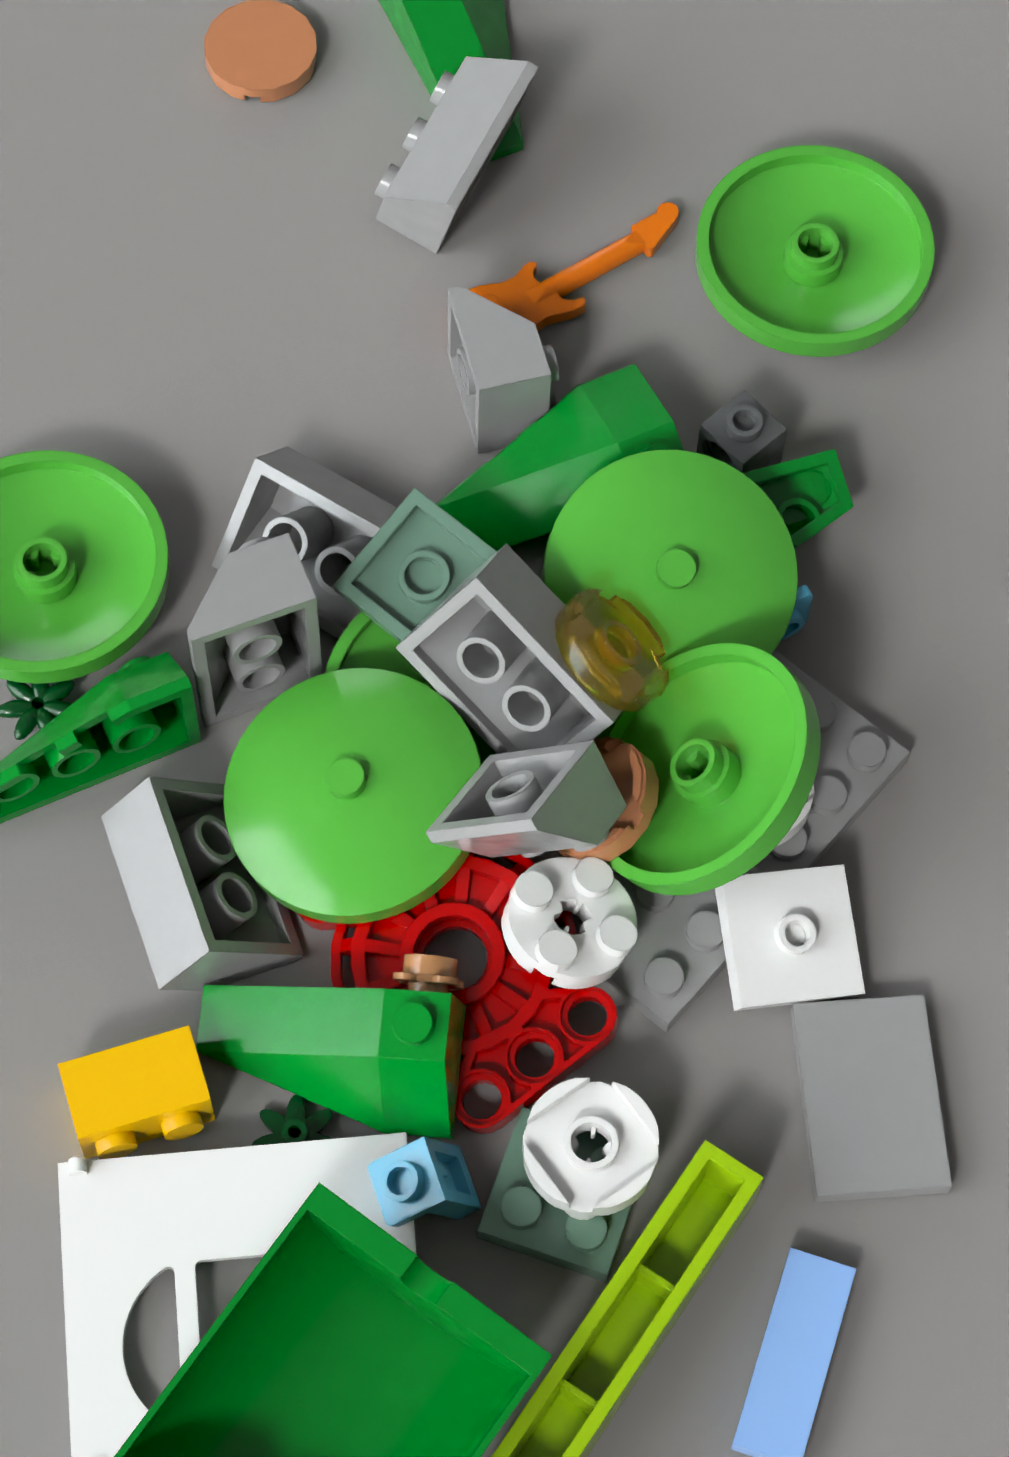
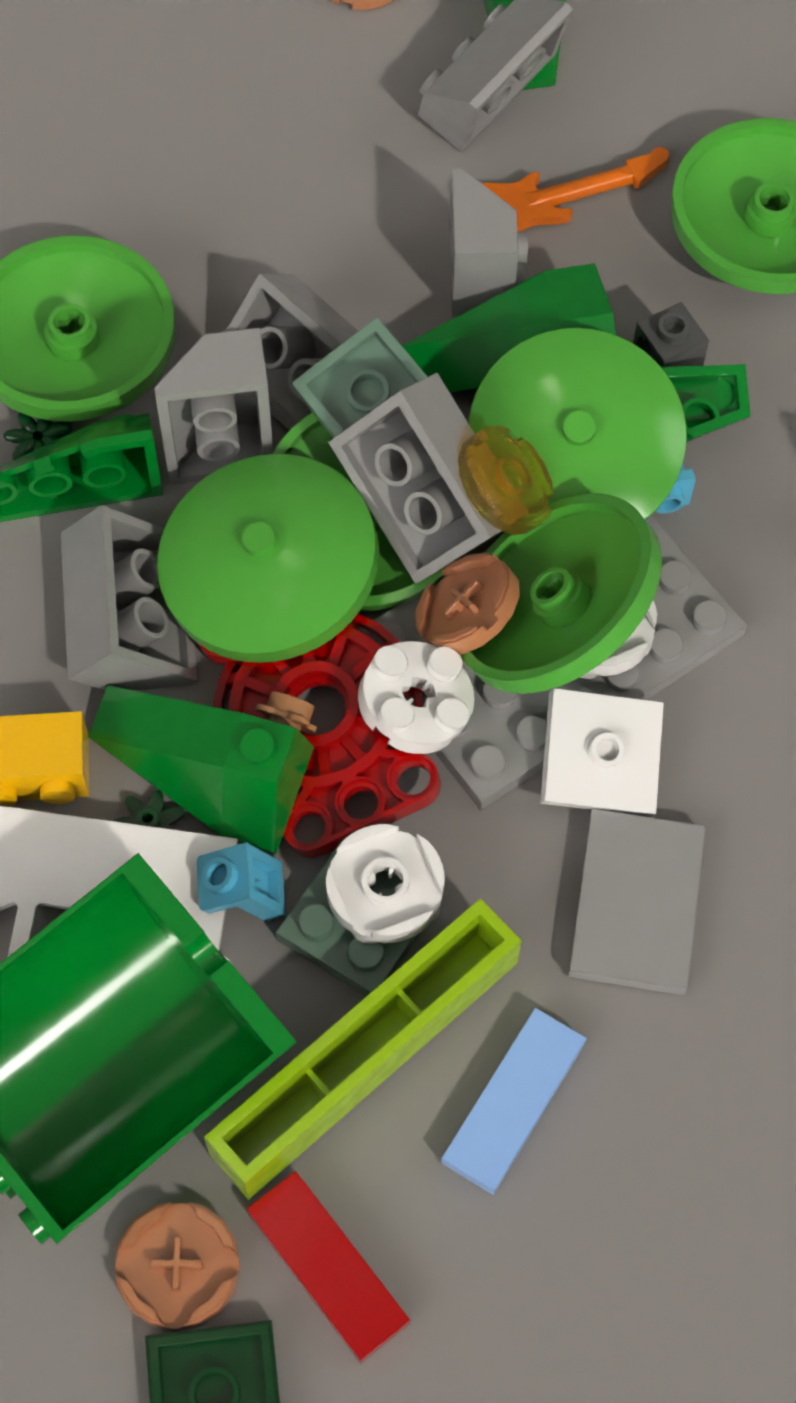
camera: 15 degrees right, 0 degrees up
(533, 803) = (406, 591): light grey slope -> none

